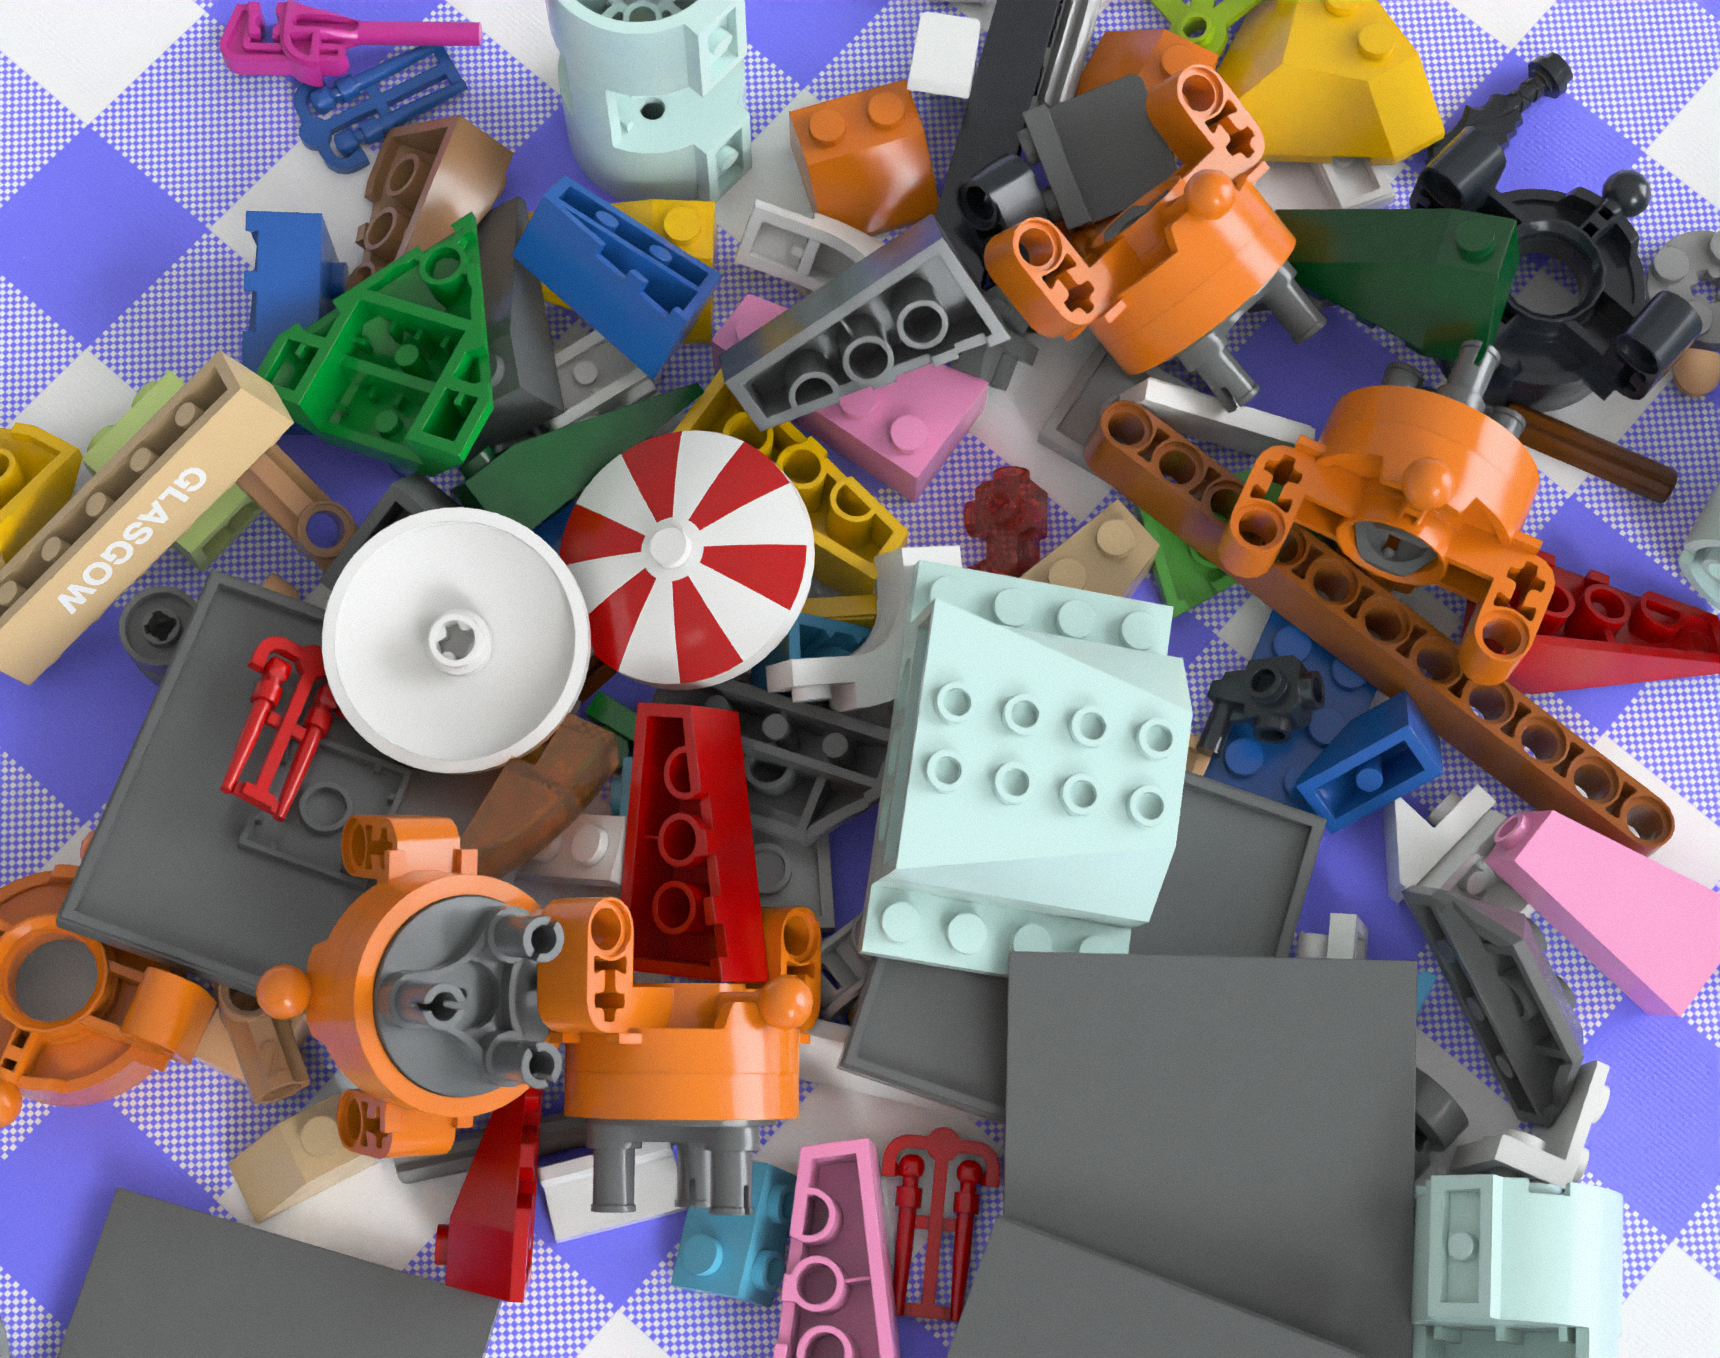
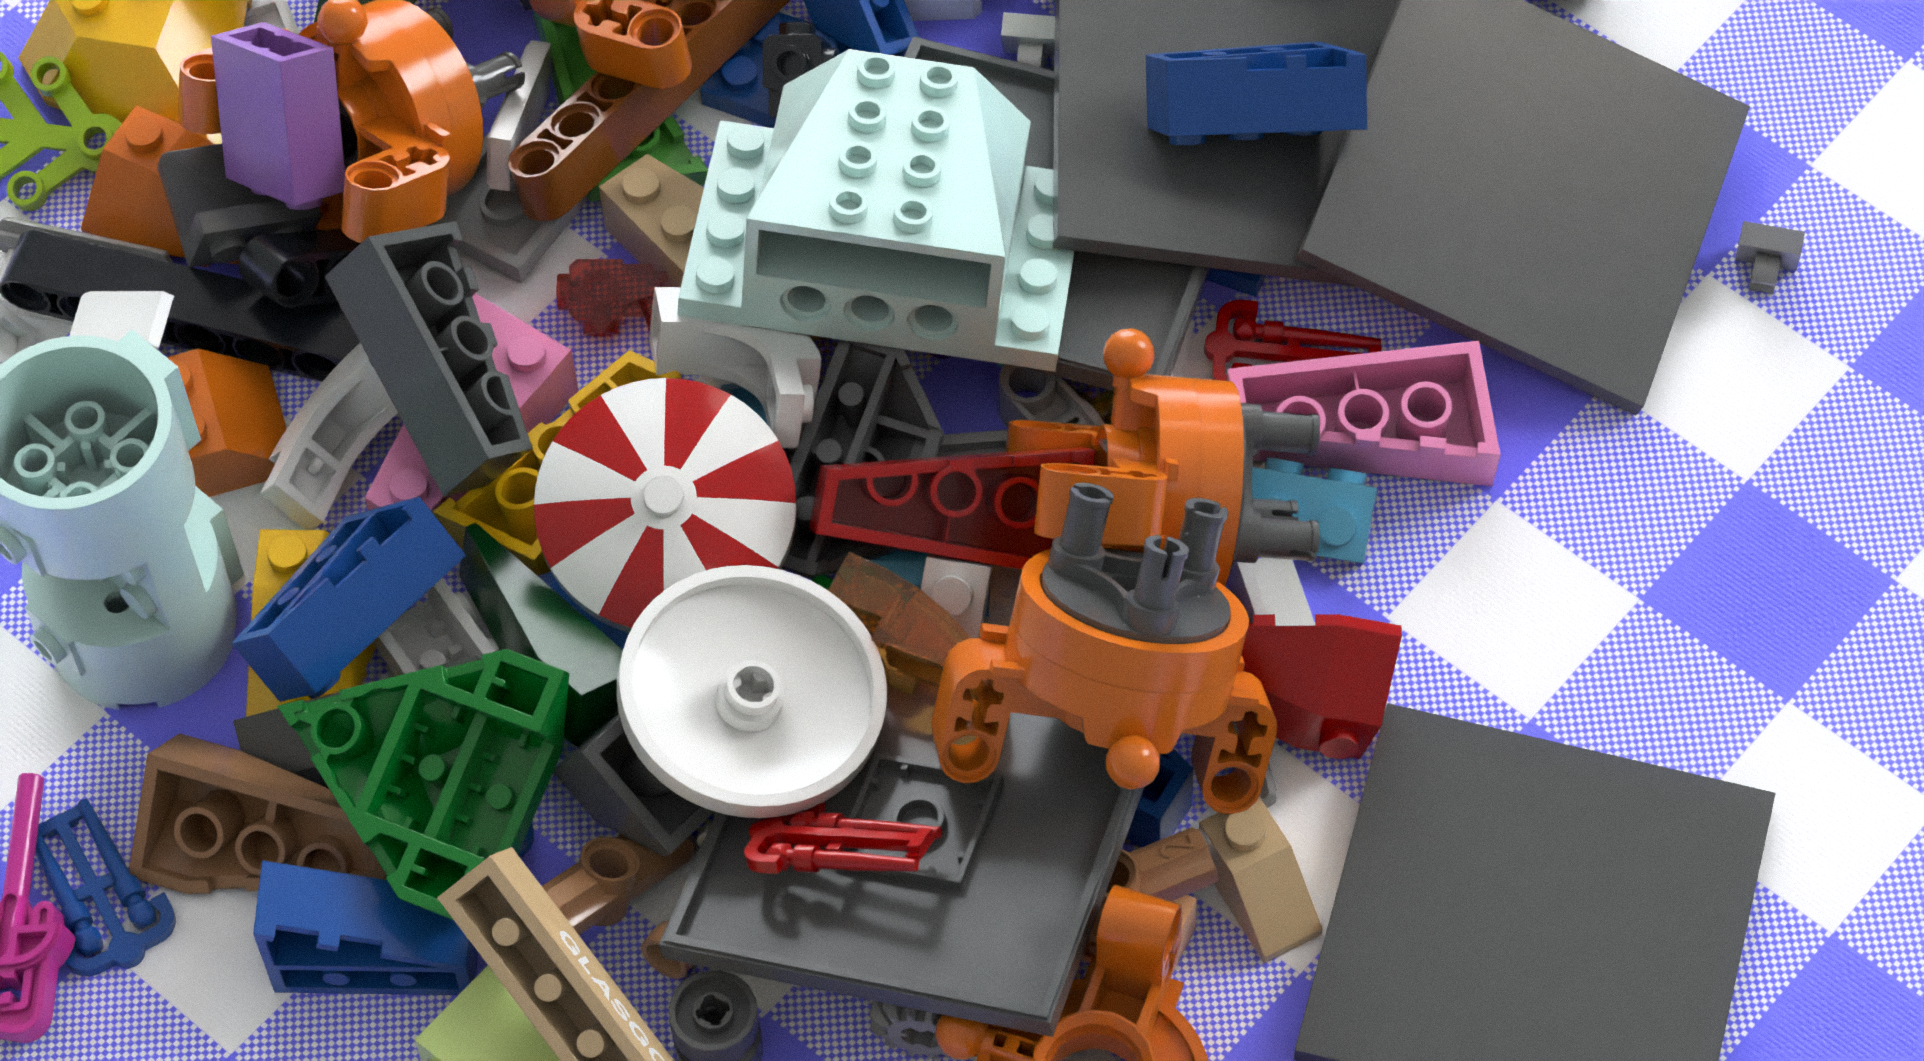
camera: 85 degrees left, 15 degrees down
(1141, 161) = (279, 114): none -> medium lavender brick
(1190, 1172) = (1256, 91): none -> blue wedge

